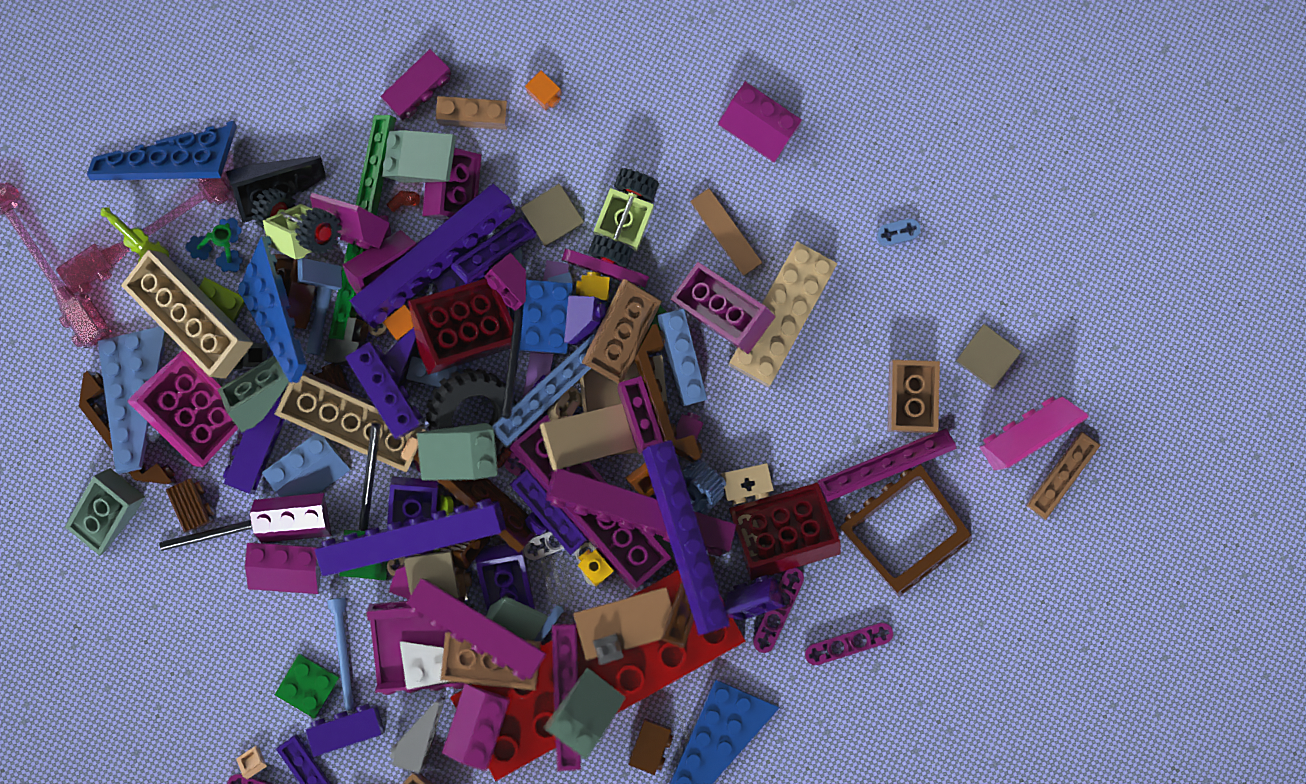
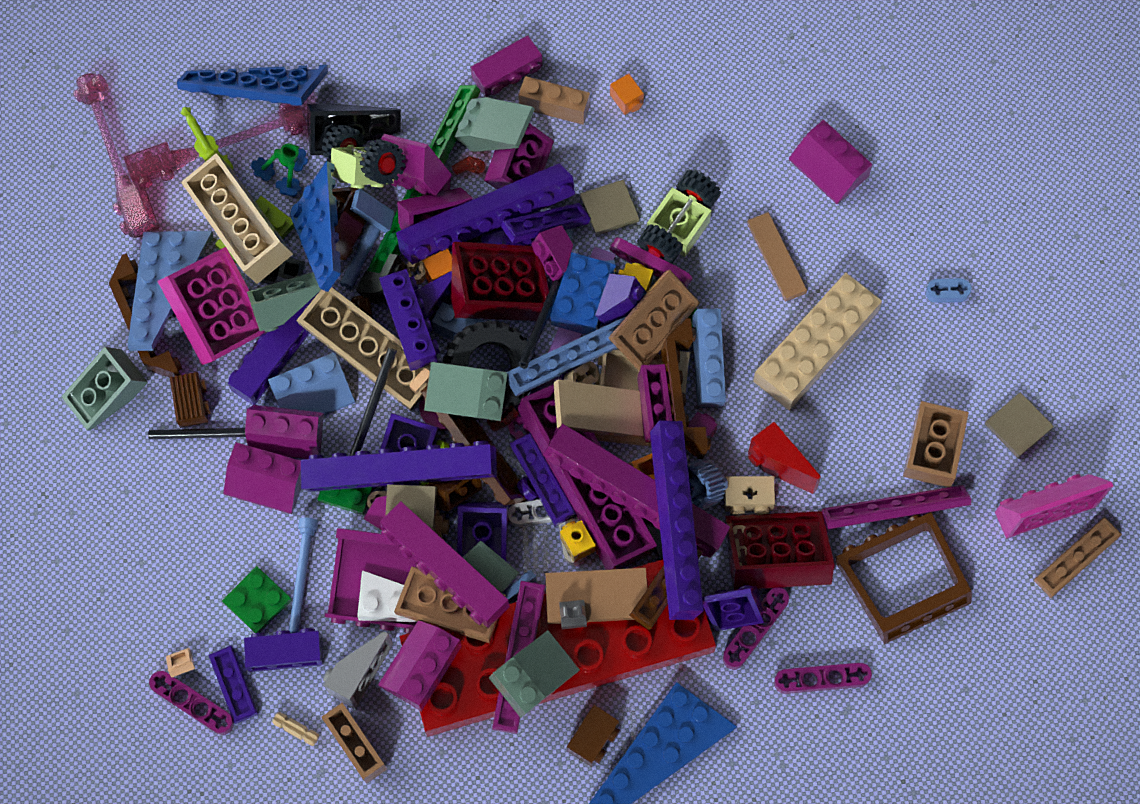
camera: 15 degrees right, 15 degrees down
(723, 307) = (760, 317): magenta brick -> none
(768, 442) = (782, 459): none -> red slope

